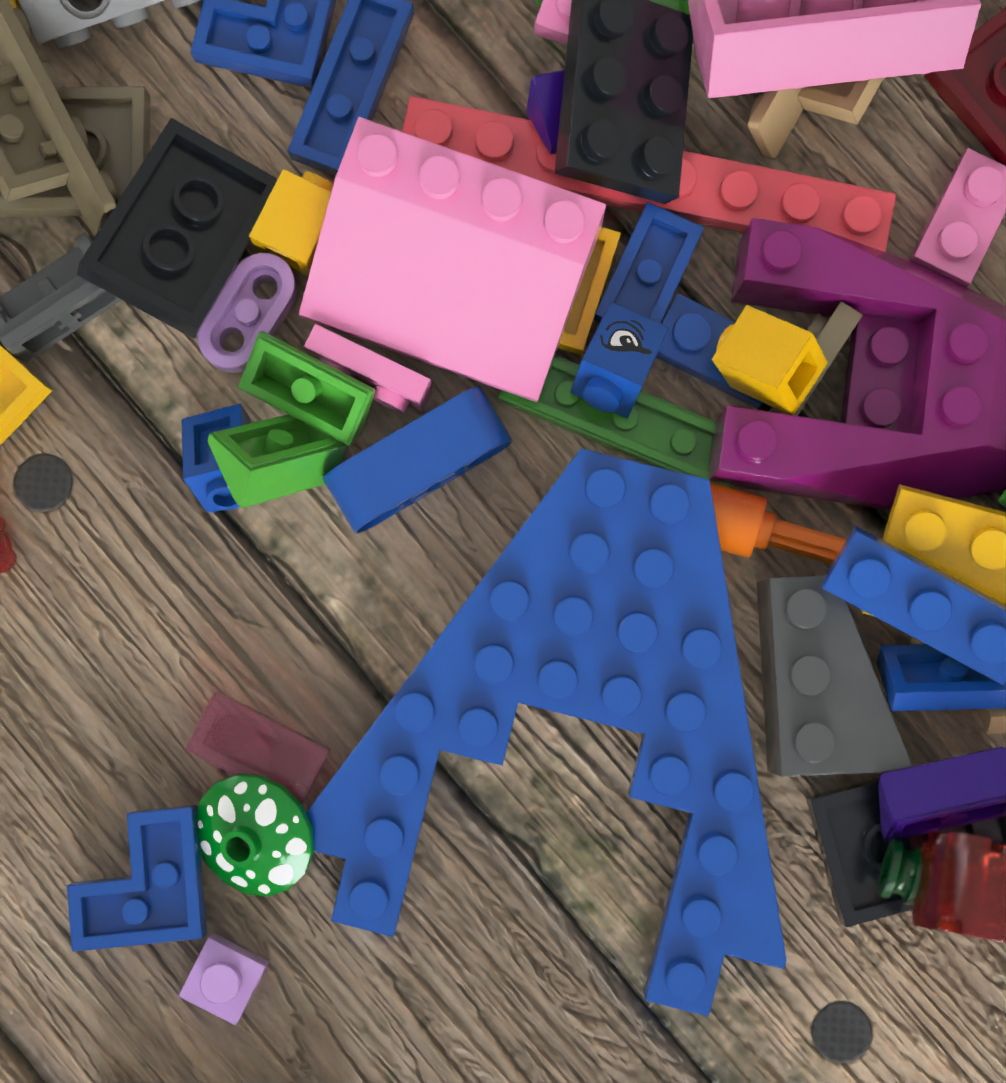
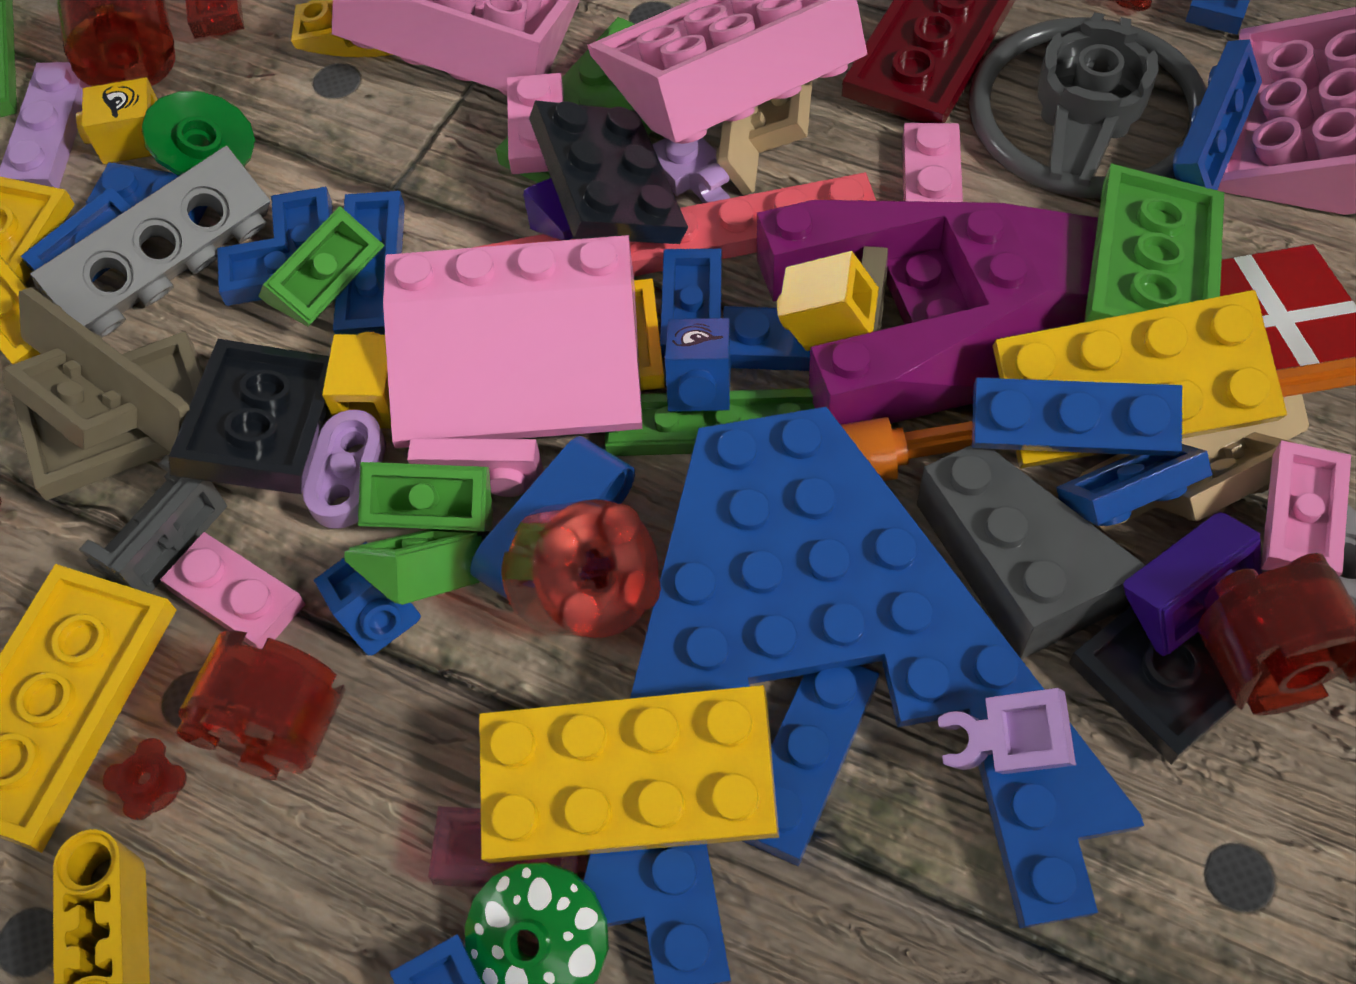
camera: 20 degrees left, 25 degrees down
(92, 541) = (260, 705): none -> clear red brick
(107, 394) = (232, 591): none -> bright pink plate
(299, 74) = (321, 268): none -> bright green slope
(376, 749) = (626, 775): none -> yellow plate
(415, 540) = (615, 562): none -> clear red brick
(538, 783) = (812, 752): none -> blue plate
(717, 865) = (1021, 732): none -> lavender plate
(725, 112) = (693, 168): none -> lavender plate
(900, 872) = (1196, 667): dark green bush -> none

